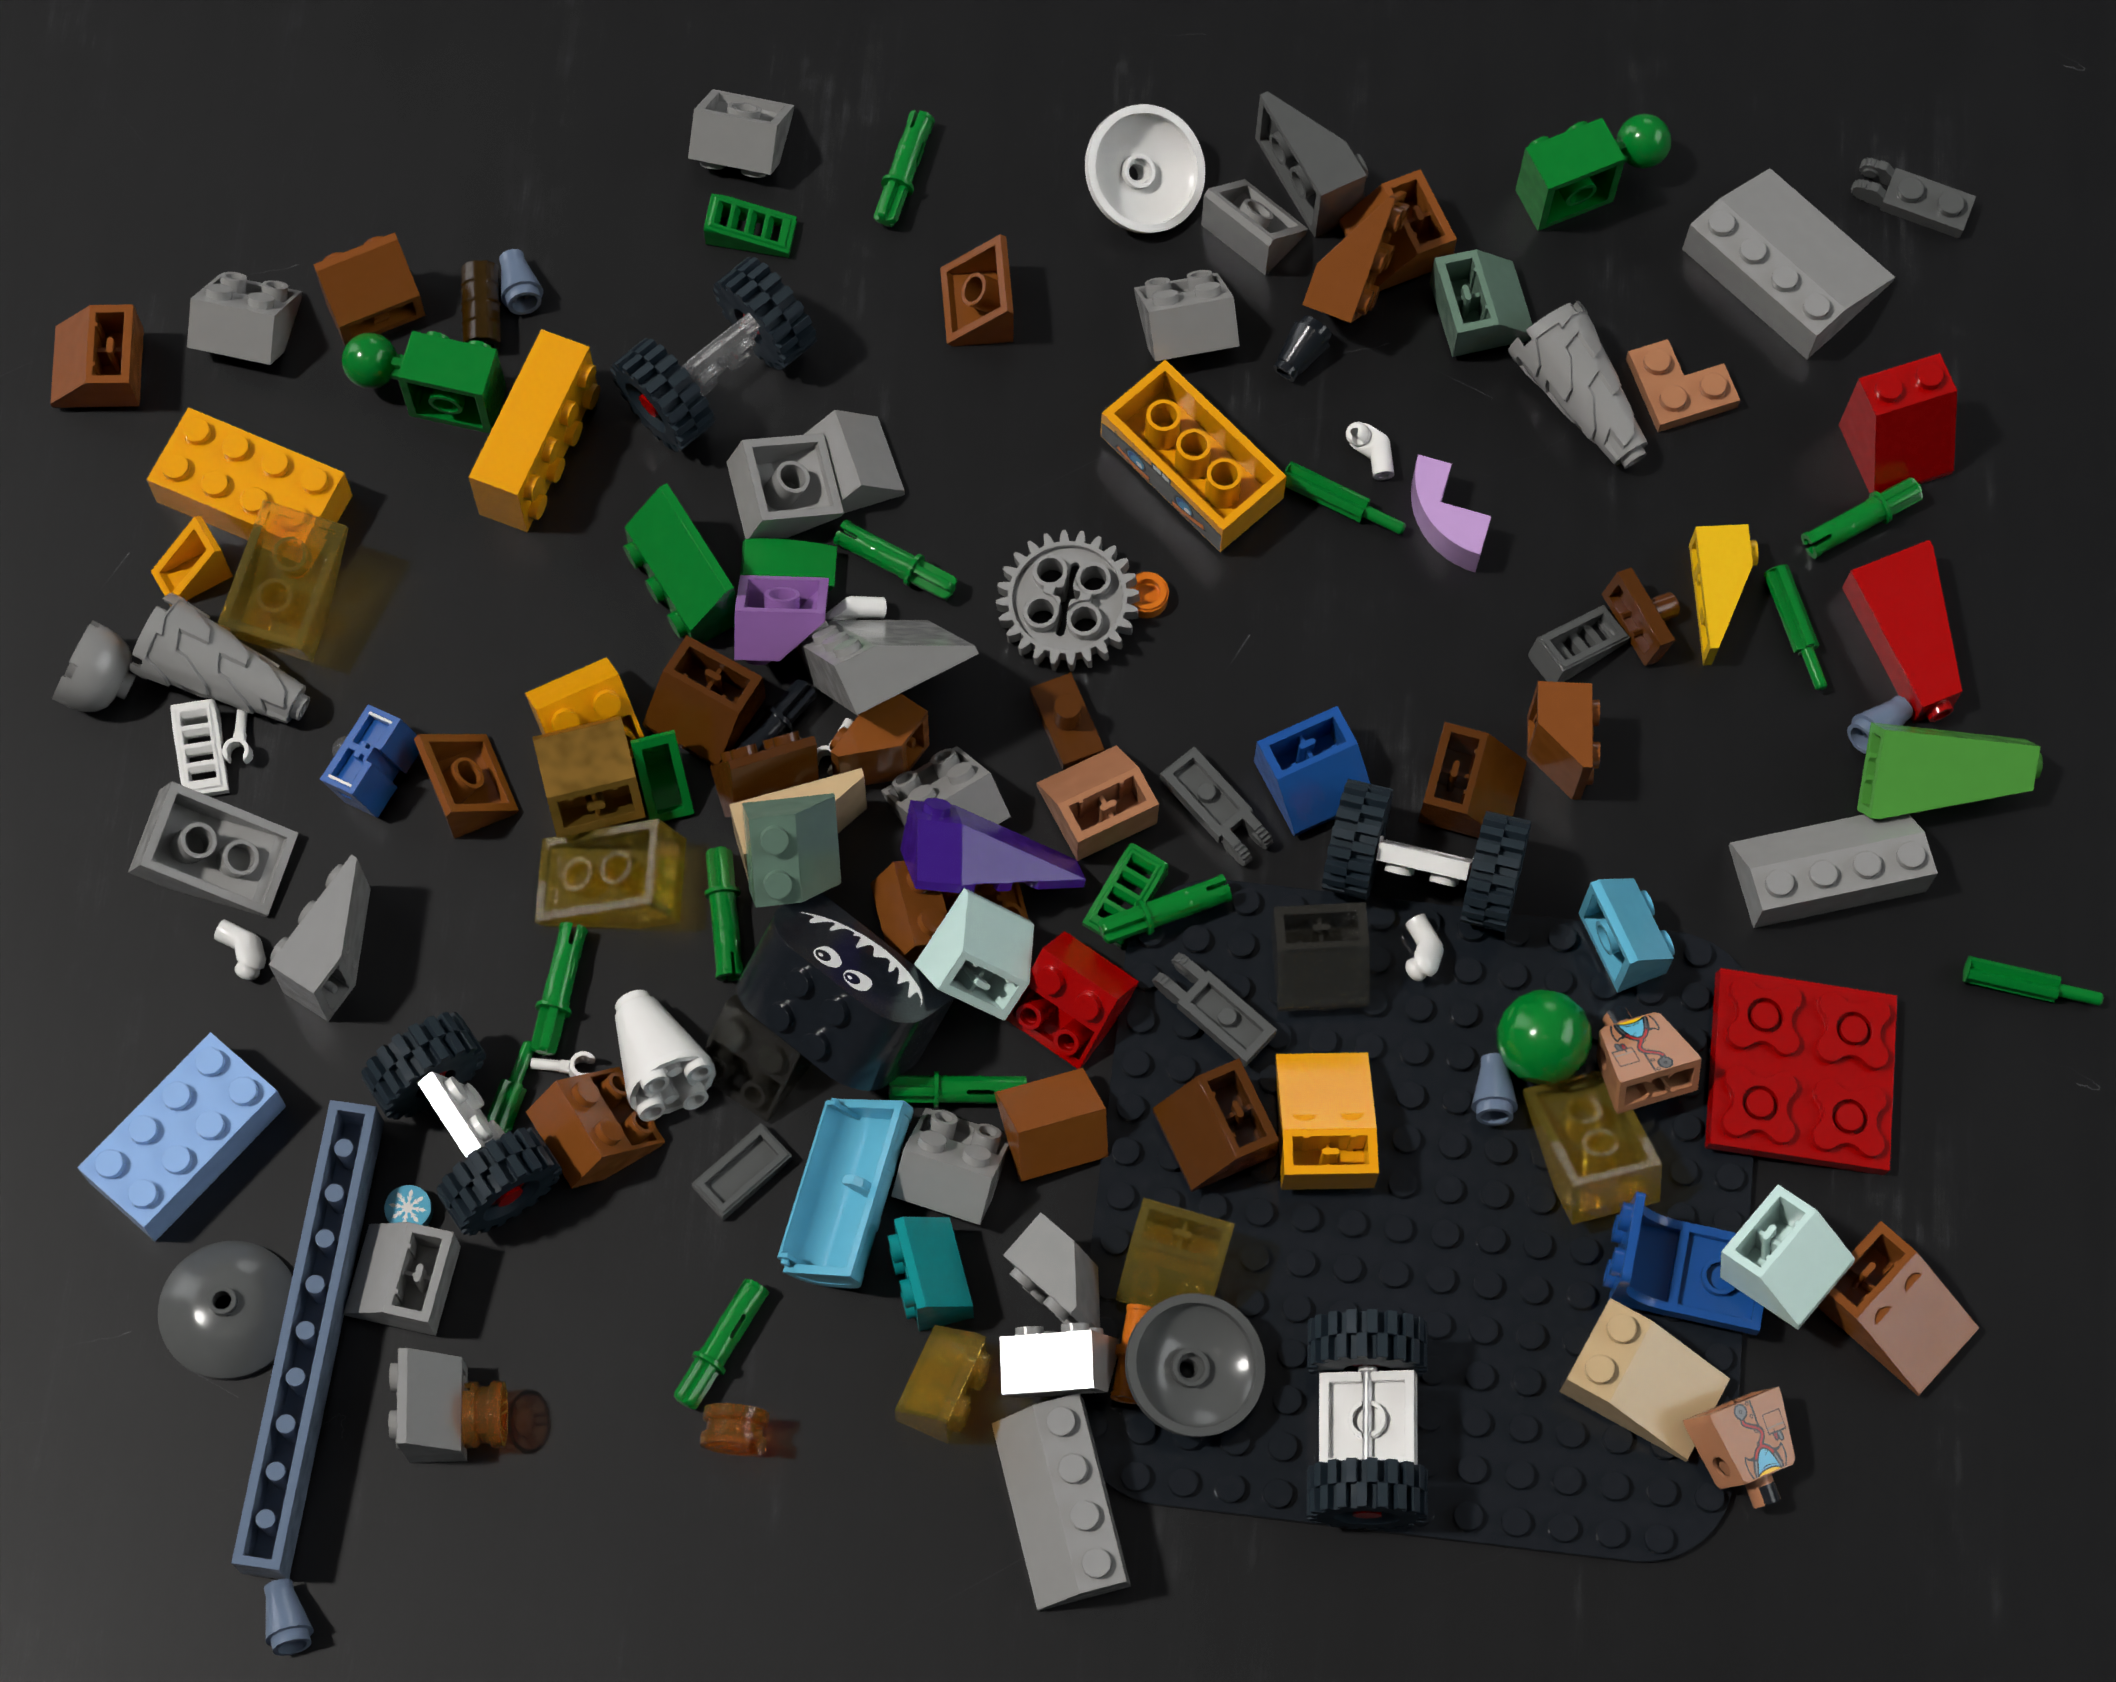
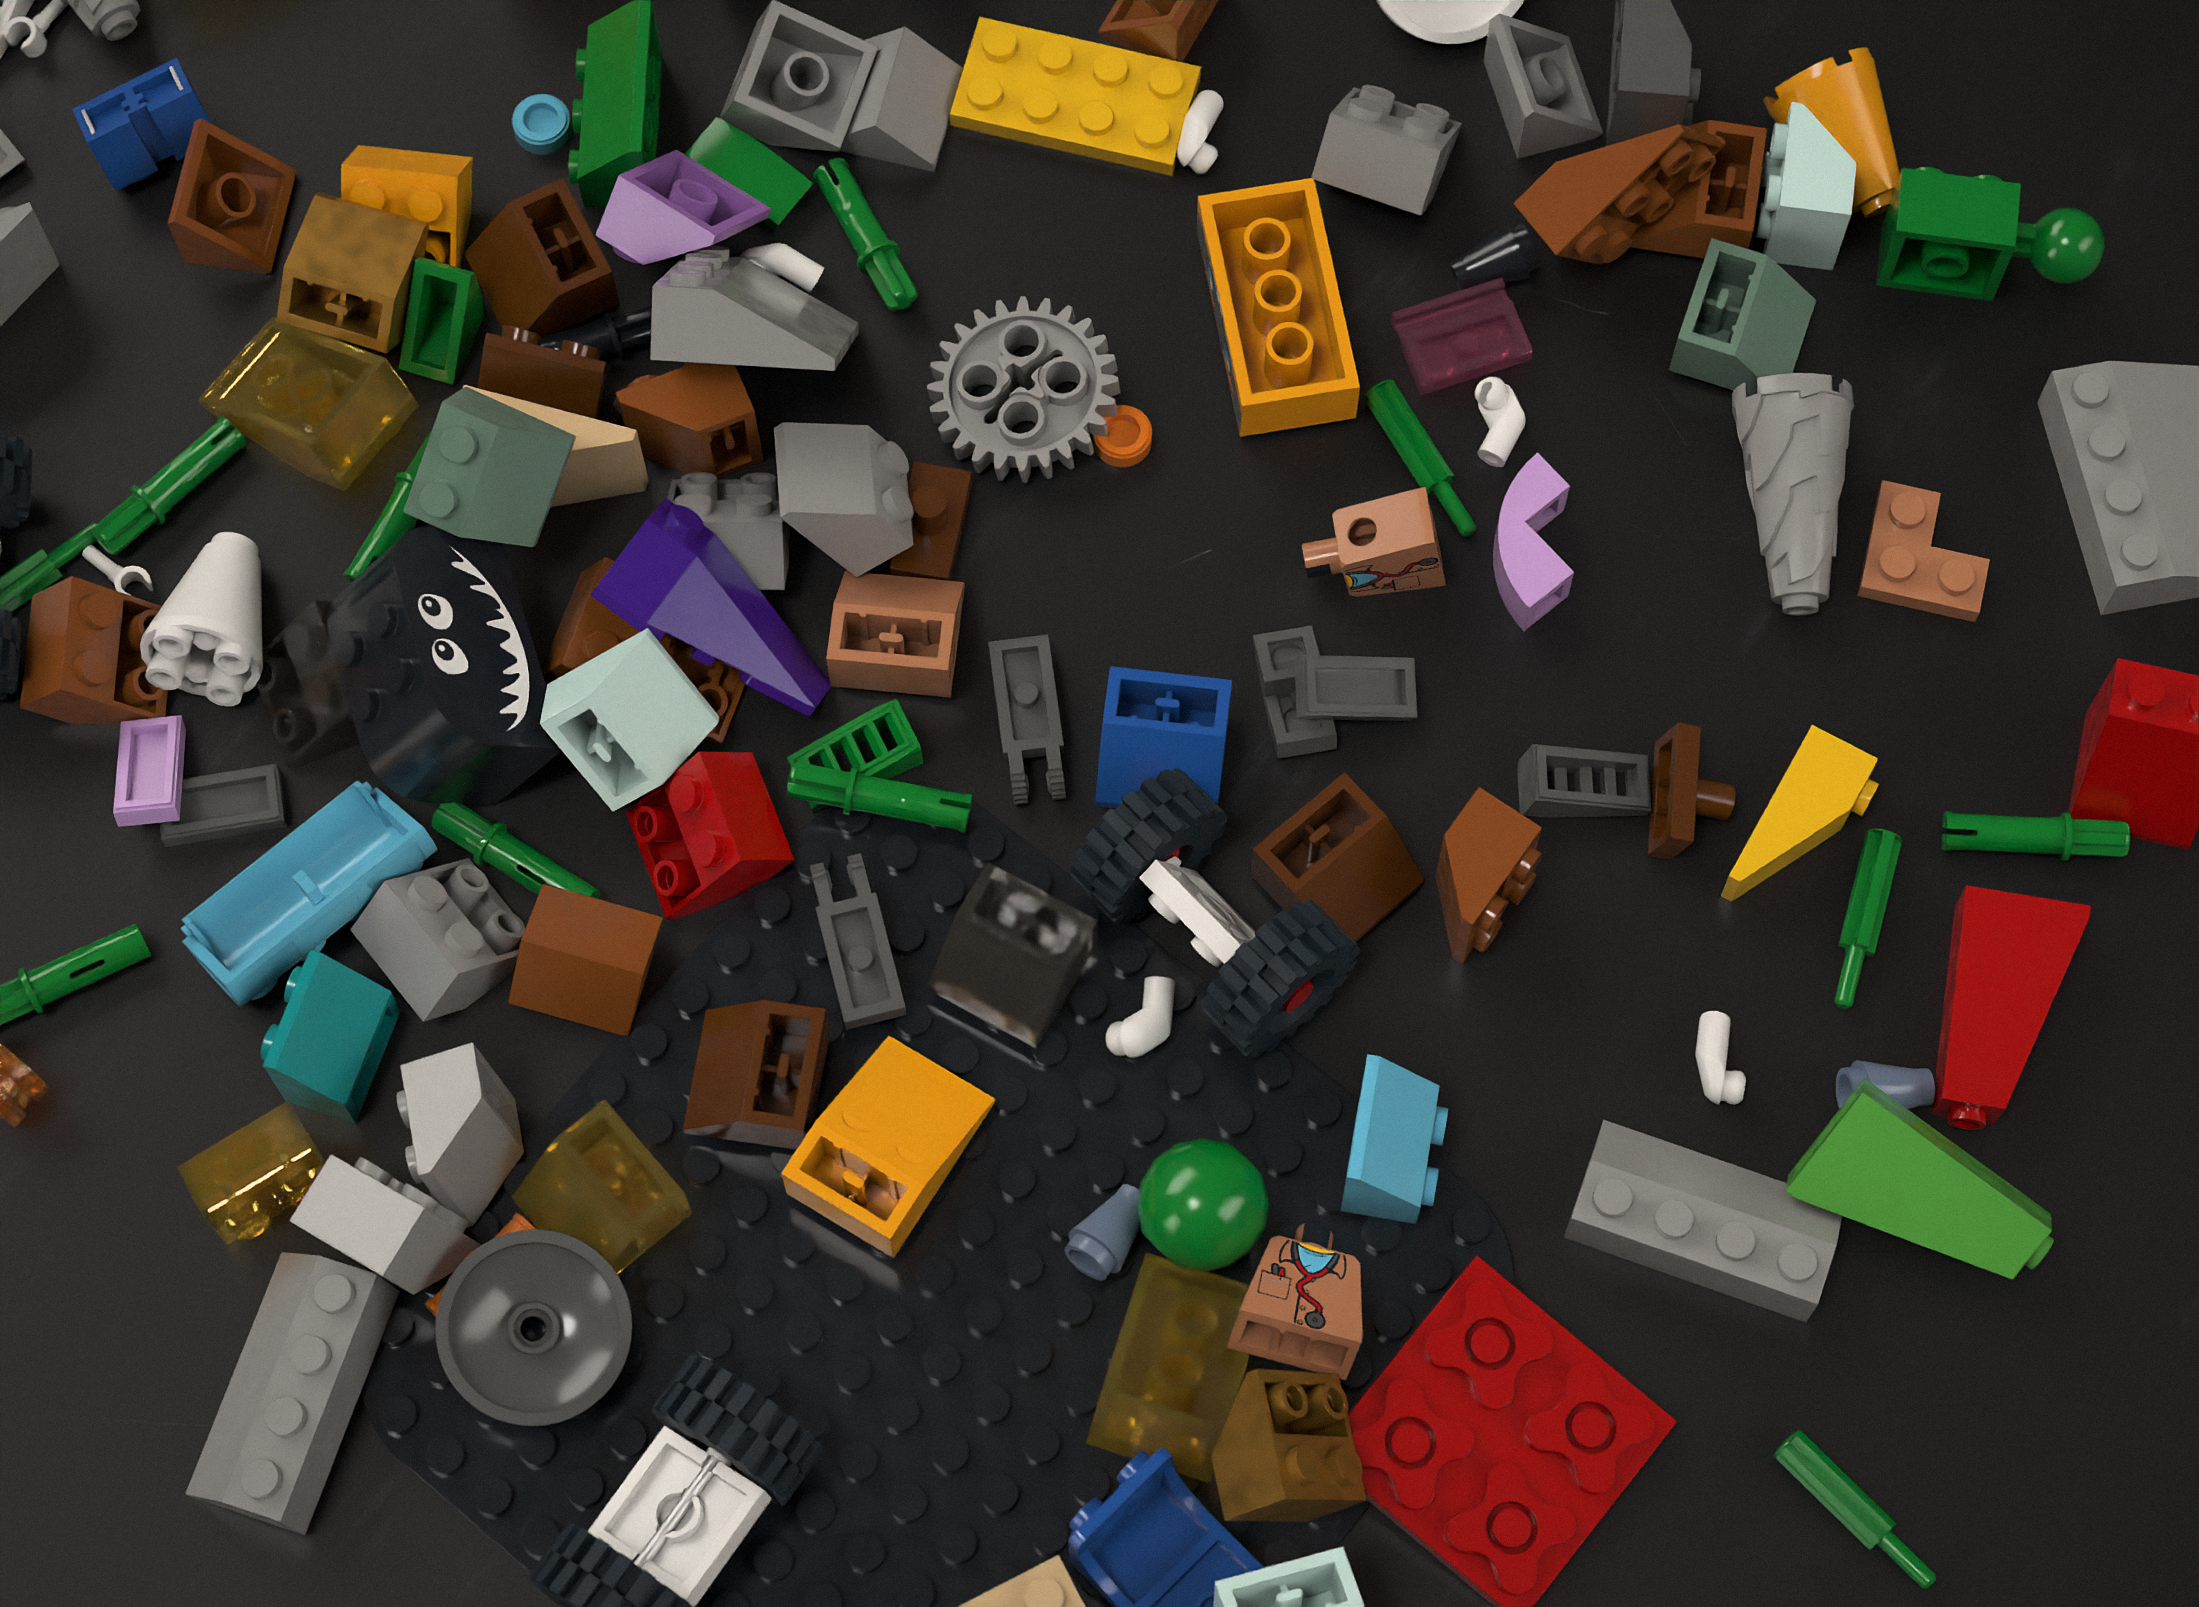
camera: 35 degrees right, 0 degrees up
(628, 610) = (541, 124): none -> medium azure tile
(684, 1177) = (149, 771): none -> lavender tile
(962, 393) = (1074, 96): none -> yellow plate
(1014, 729) = (844, 491): none -> light grey slope
(1059, 373) = (1196, 127): none -> white arm
(1314, 409) = (1461, 336): none -> clear pink plate
(1362, 568) = (1381, 546): none -> nougat torso
(1364, 692) = (1276, 672): none -> dark grey slope
(1405, 667) = (1355, 688): none -> dark grey tile
(1461, 145) = (1853, 111): none -> light orange cone
(1470, 194) = (1806, 192): none -> light aqua slope
(1700, 1150) = (1287, 1449): none -> pearl gold slope
(1770, 767) = (1711, 1060): none -> white arm

